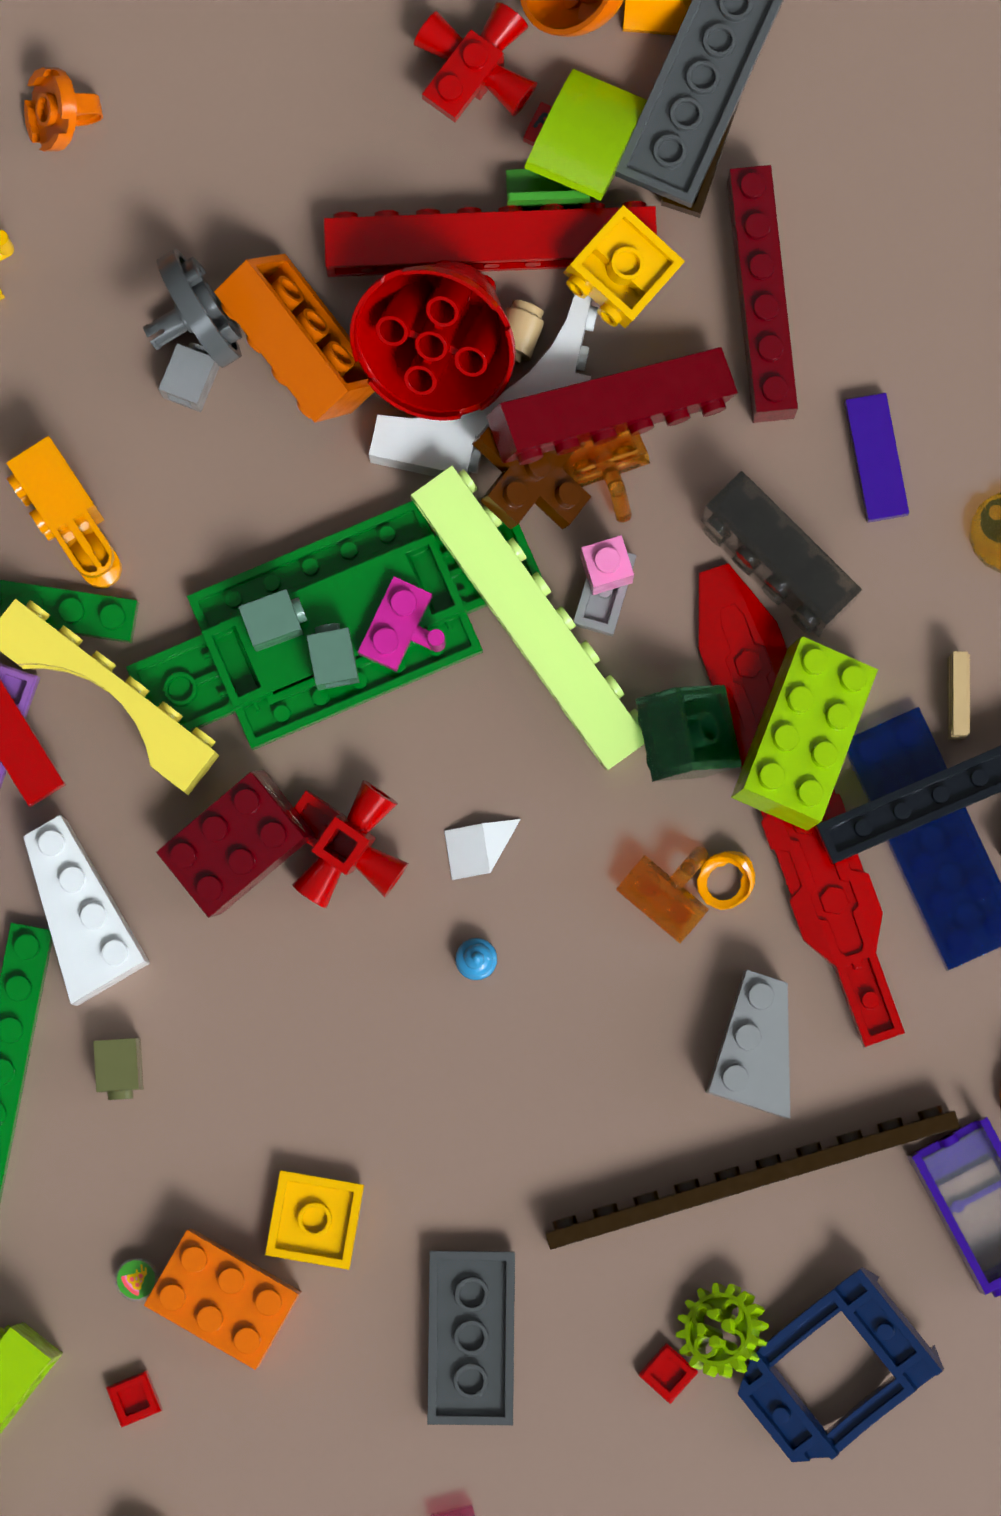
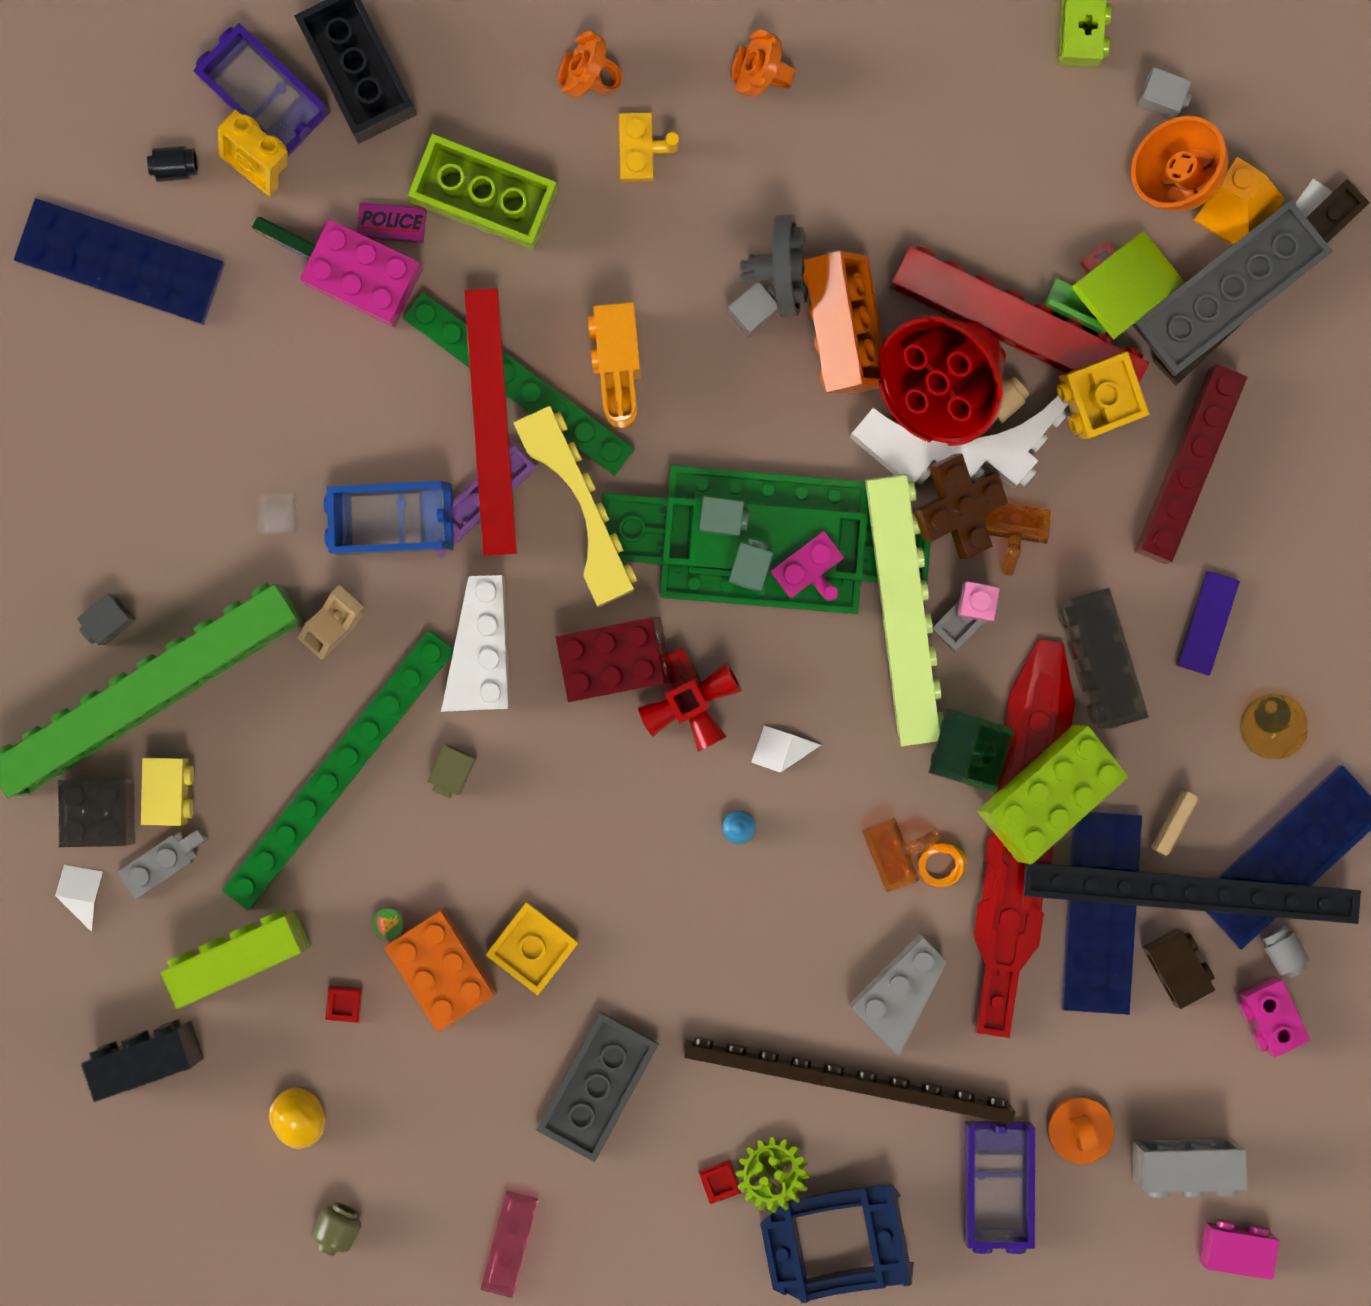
camera: 20 degrees right, 5 degrees up
(474, 63) = (1075, 189): red brick -> none
(611, 406) = (1043, 491): dark red brick -> none

